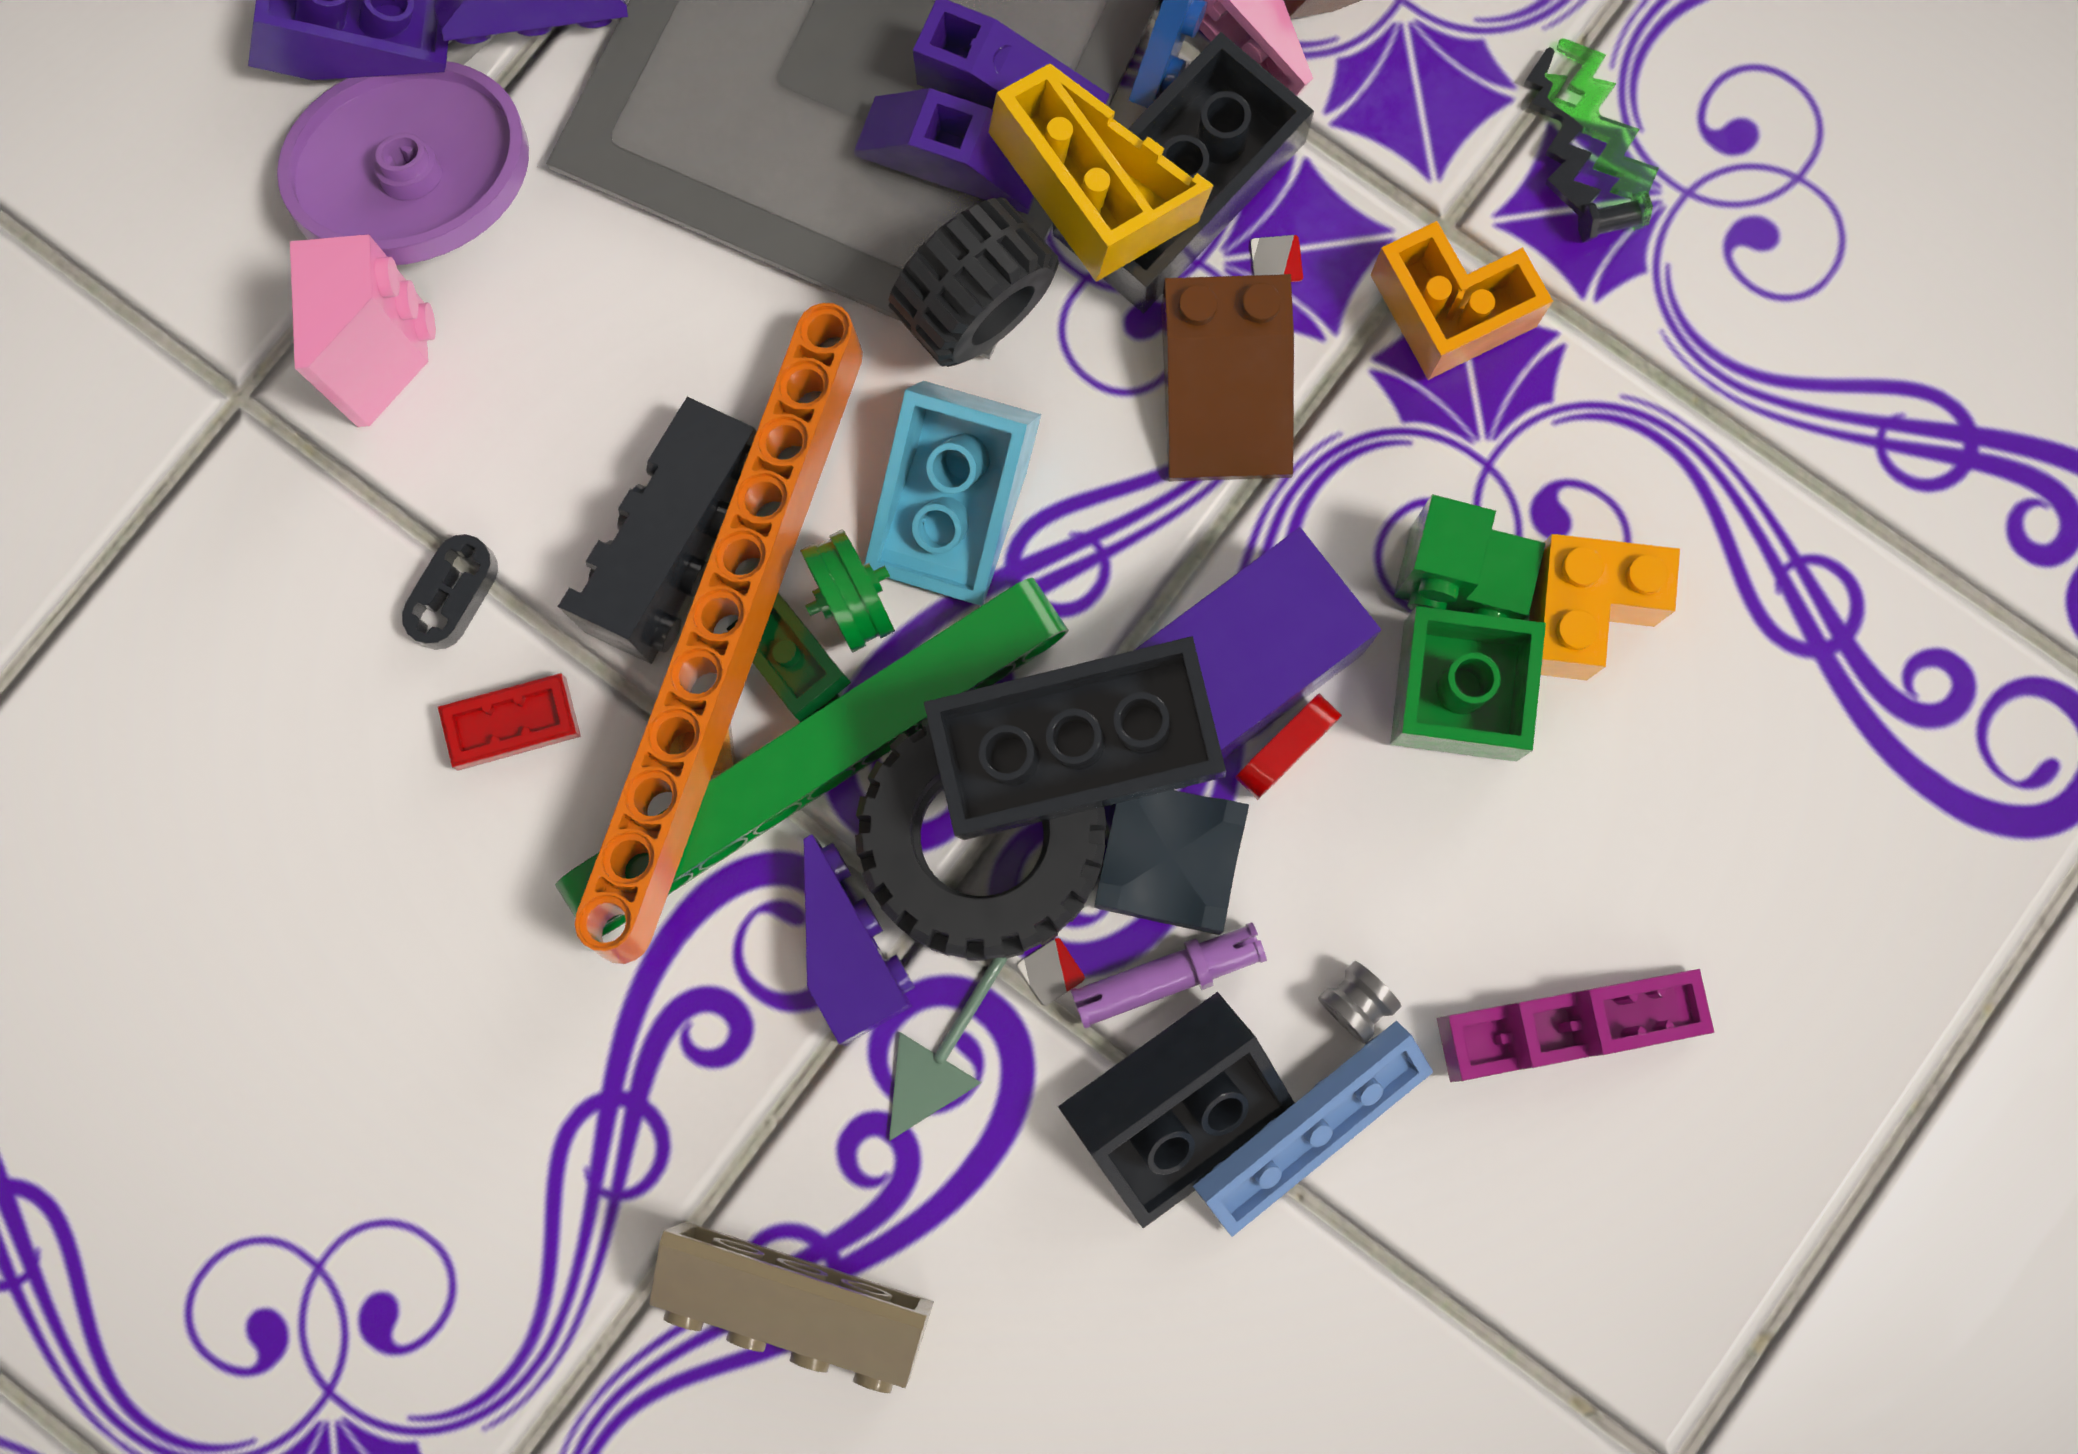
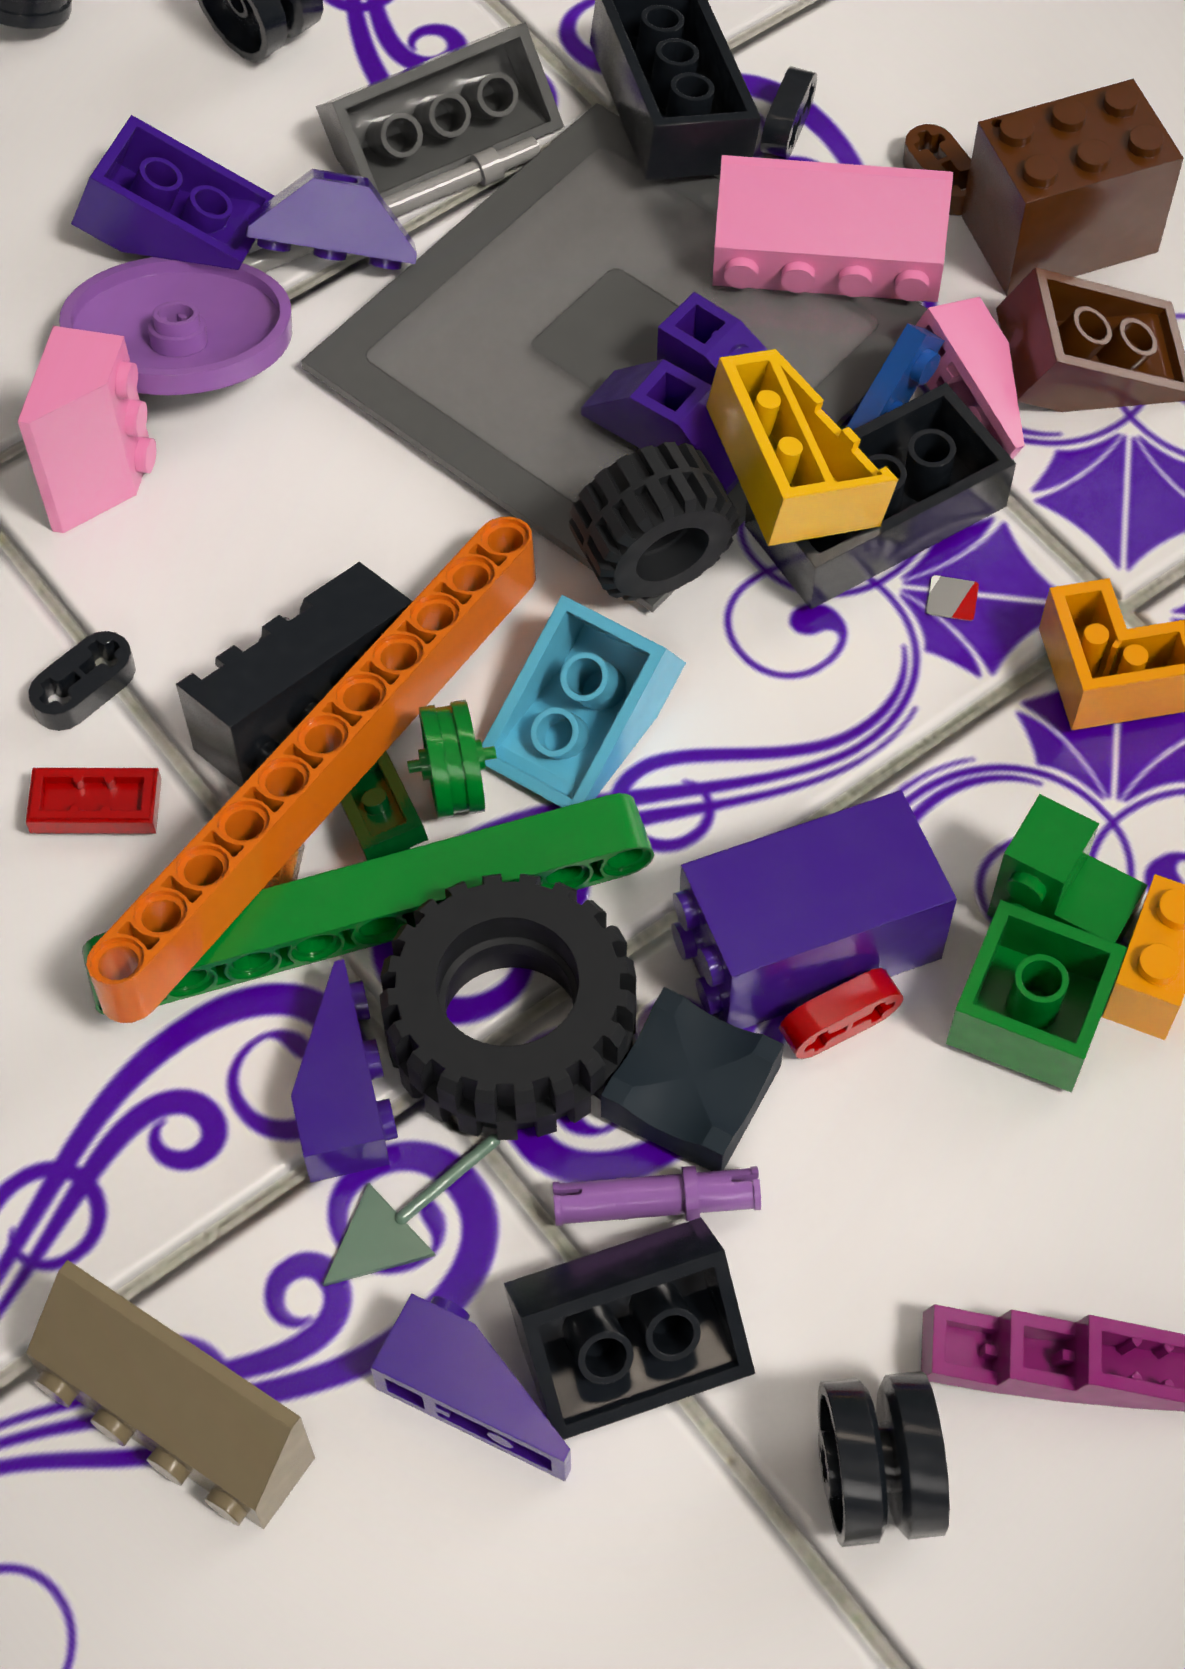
camera: 15 degrees right, 20 degrees down
(1041, 1202) = (455, 1375): none -> dark purple slope
(1051, 971) = (538, 1167): light grey sticker -> none
(1075, 739) = (623, 904): black brick -> none
(1228, 377) = (875, 676): reddish brown slope -> none
(1314, 1128) = (760, 1384): medium blue plate -> none
(1360, 1001) = (846, 1272): flat silver wheel -> none
(1443, 1180) = (883, 1458): none -> black wheel

